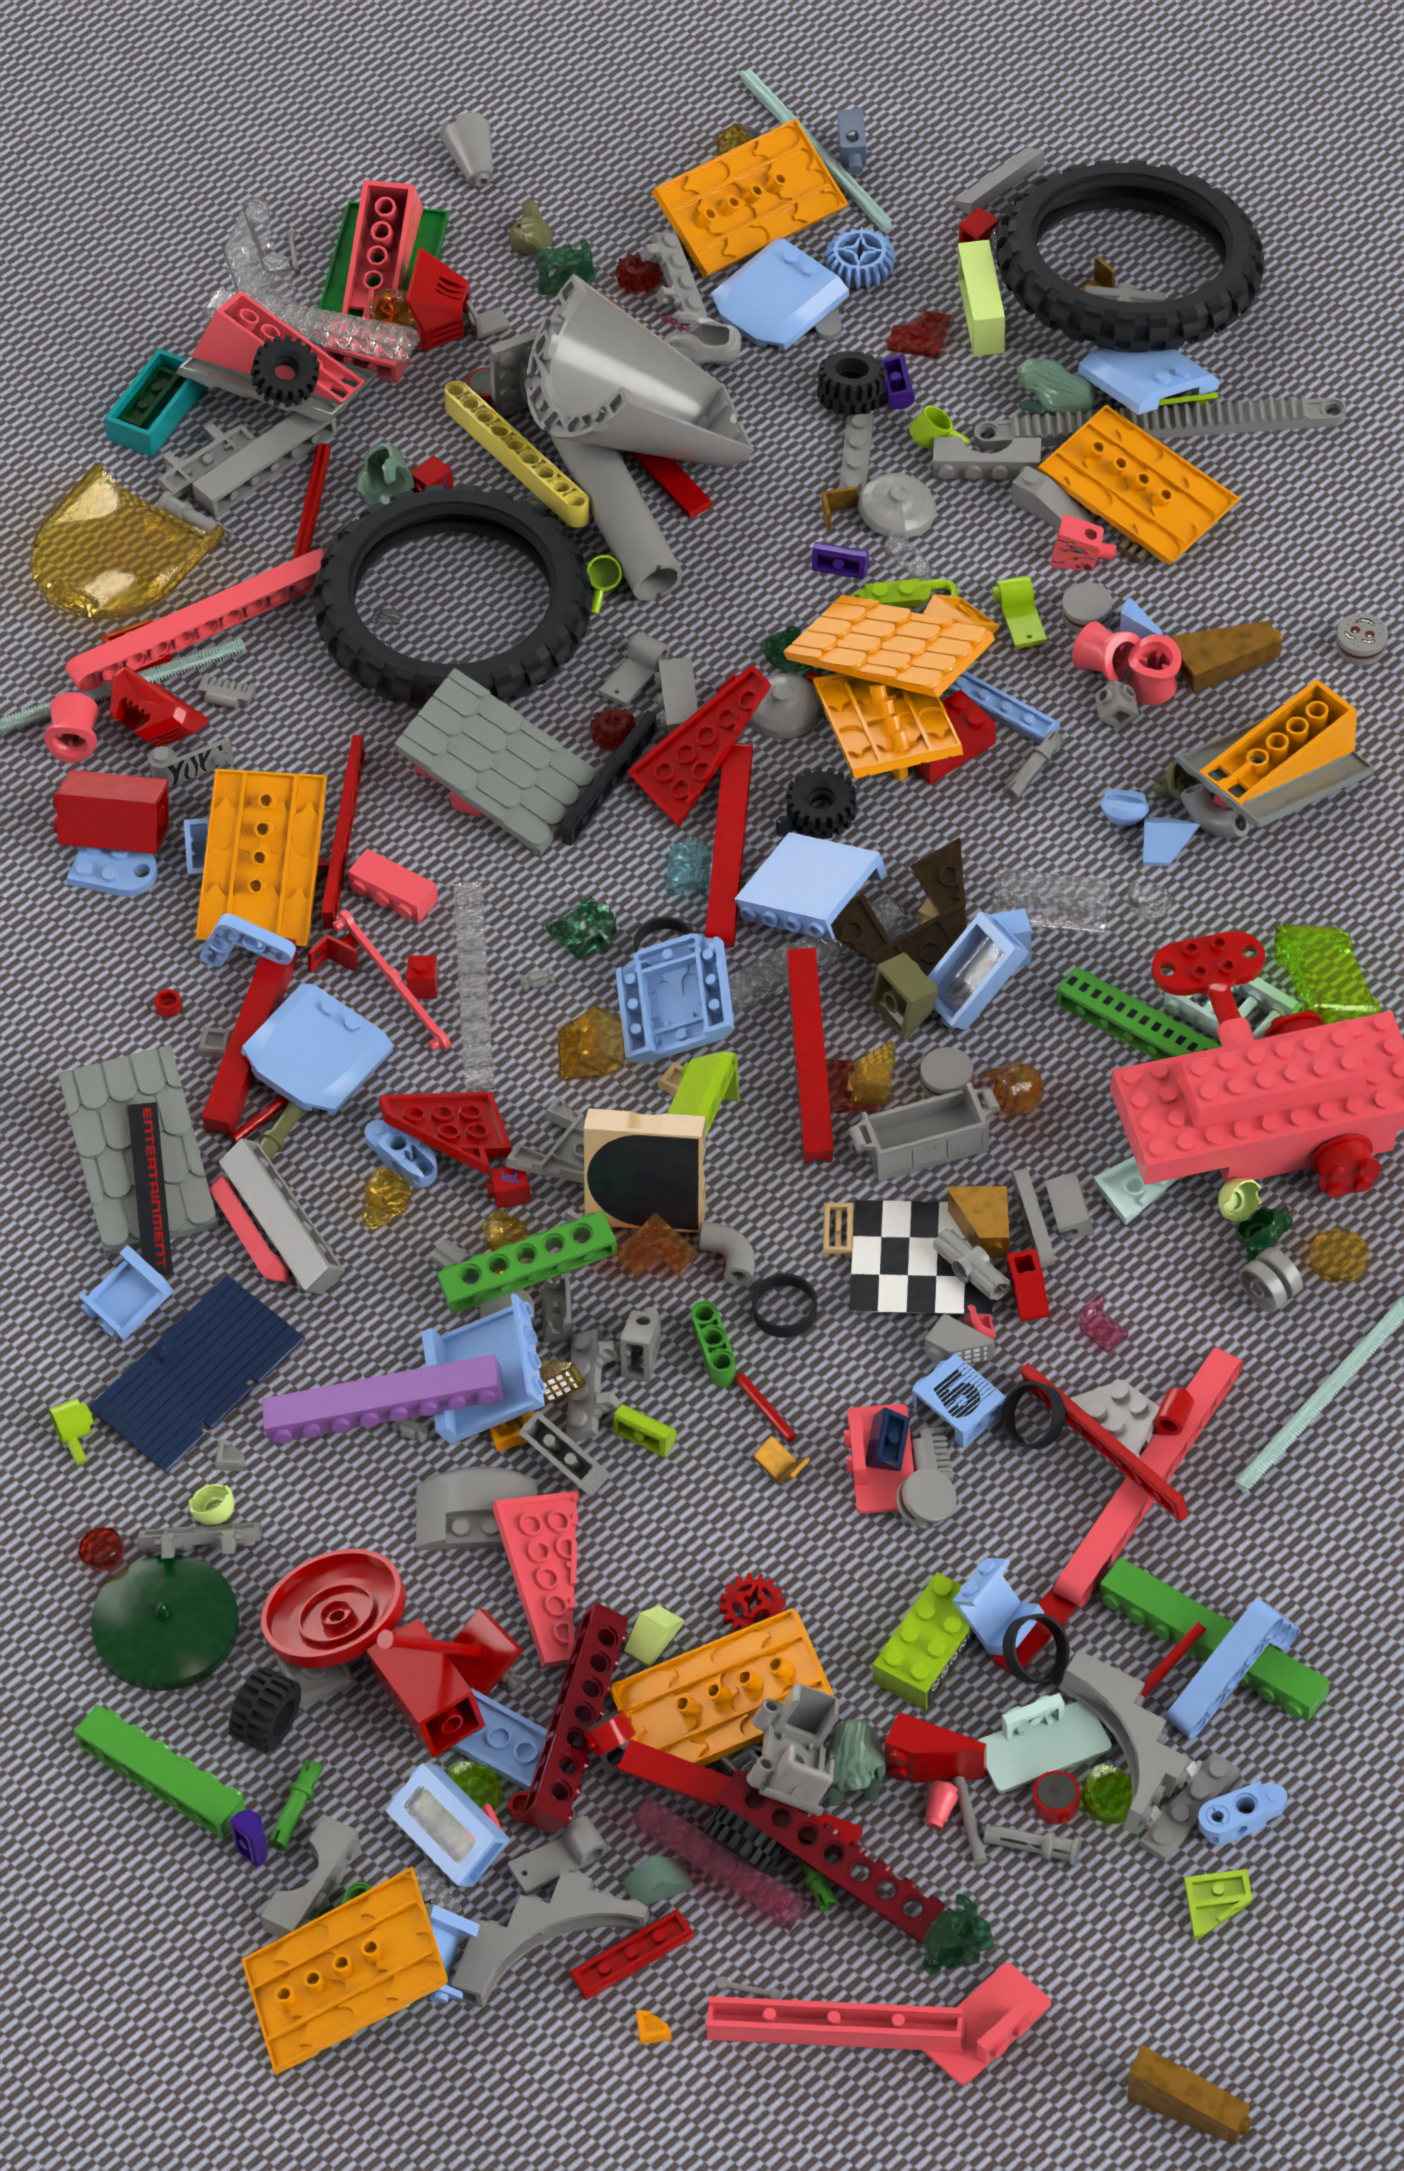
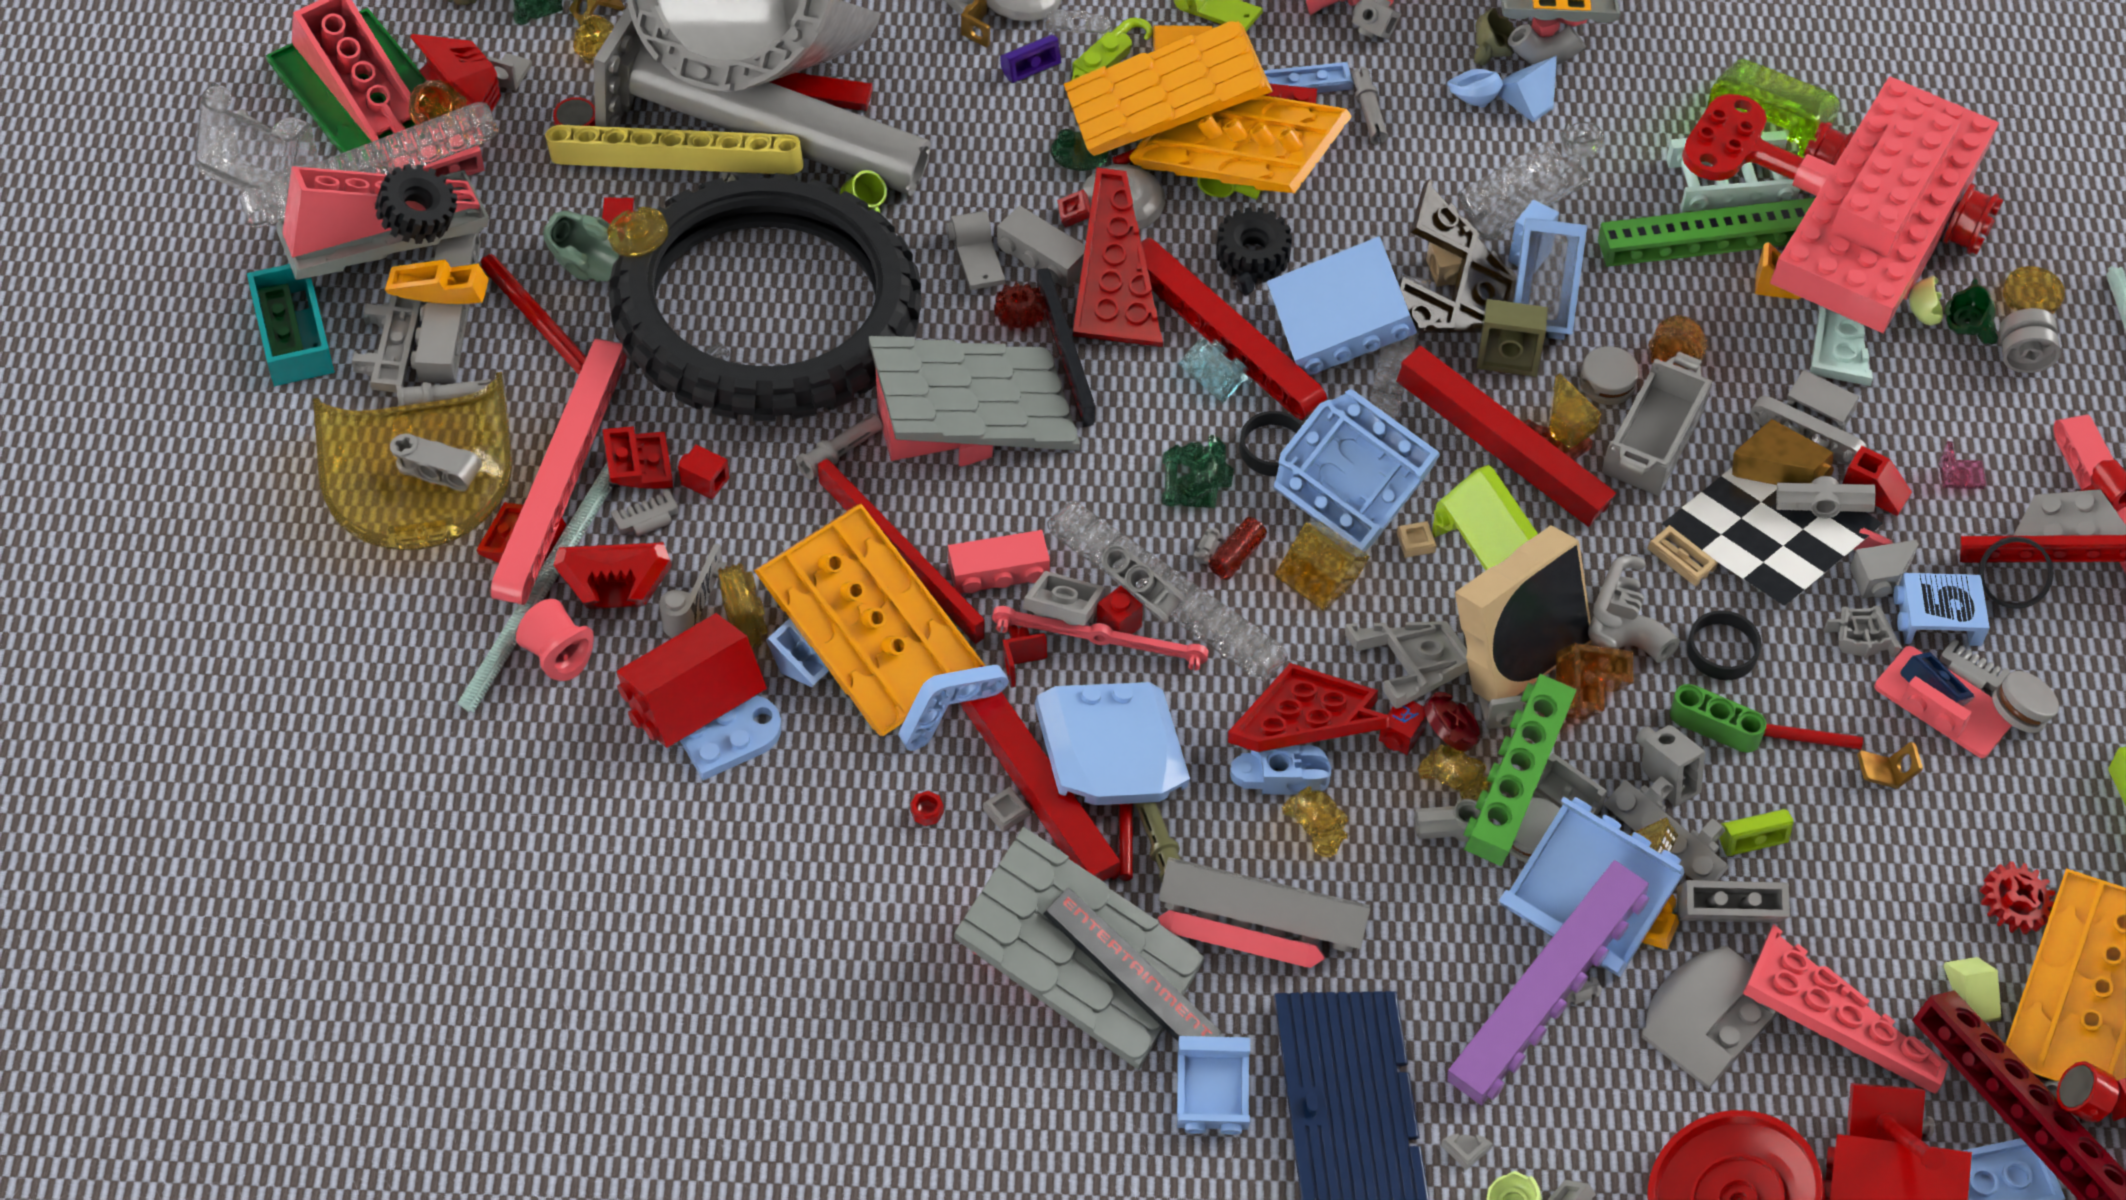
camera: 50 degrees left, 0 degrees up
(130, 558) = (435, 461): none -> light grey piece
(195, 788) = (741, 603): none -> clear yellow brick
(257, 649) = (637, 458): none -> red slope
(259, 439) = (438, 282): none -> light orange slope
(286, 688) = (703, 471): none -> red brick
(375, 733) = (838, 446): none -> light grey pin
(393, 937) = (1064, 599): none -> light grey plate
(405, 491) = (637, 232): none -> clear yellow tile
(448, 963) = (1157, 596): none -> light grey piece
(537, 1205) = (1452, 722): none -> dark red tile
(552, 994) = (1237, 548): none -> clear red axle
(734, 1213) = (1616, 598): none -> light grey piece
(886, 1370) = (1864, 632): none -> light grey piece

